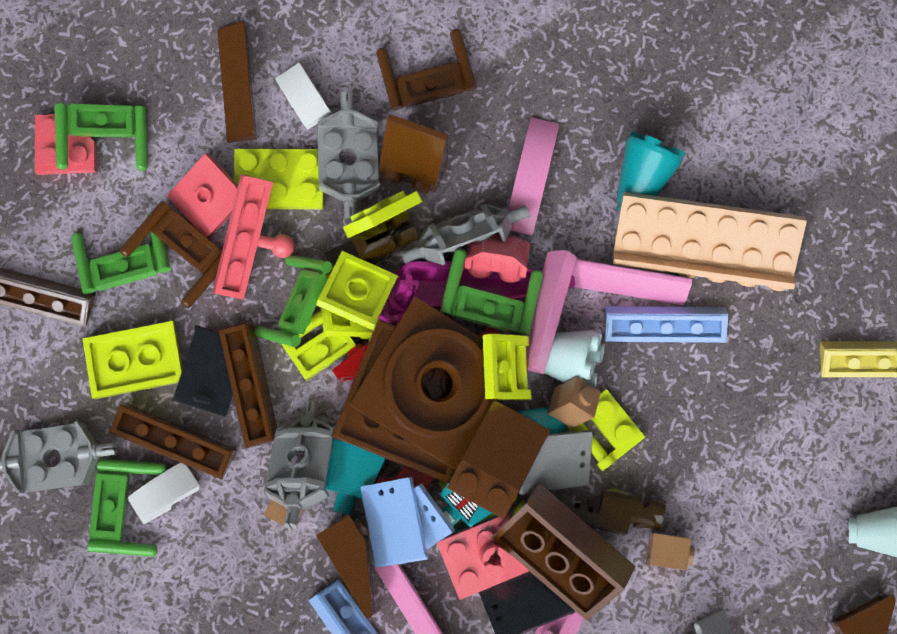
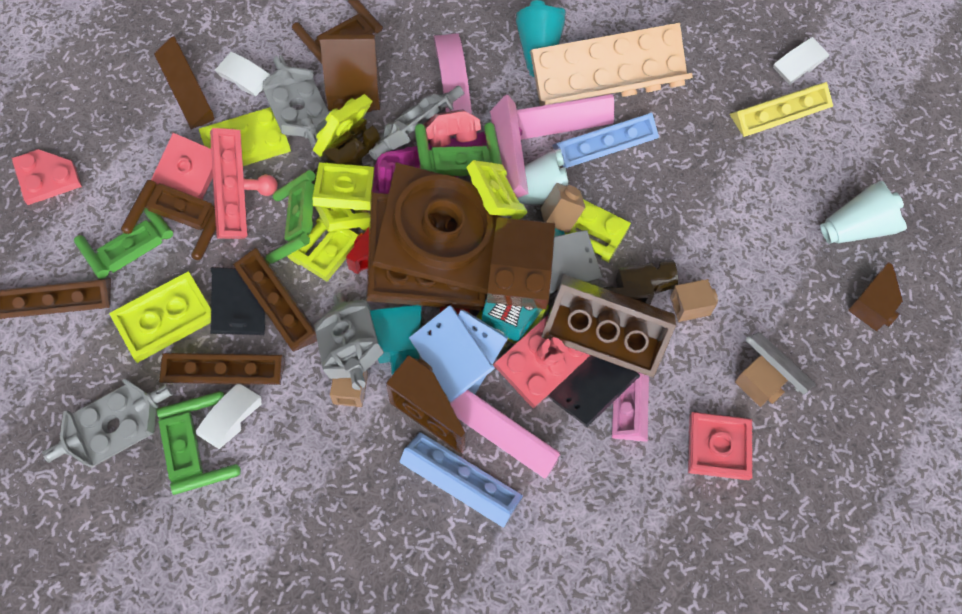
camera: 25 degrees left, 15 degrees down
(100, 121) = (73, 142): bright green plate -> none

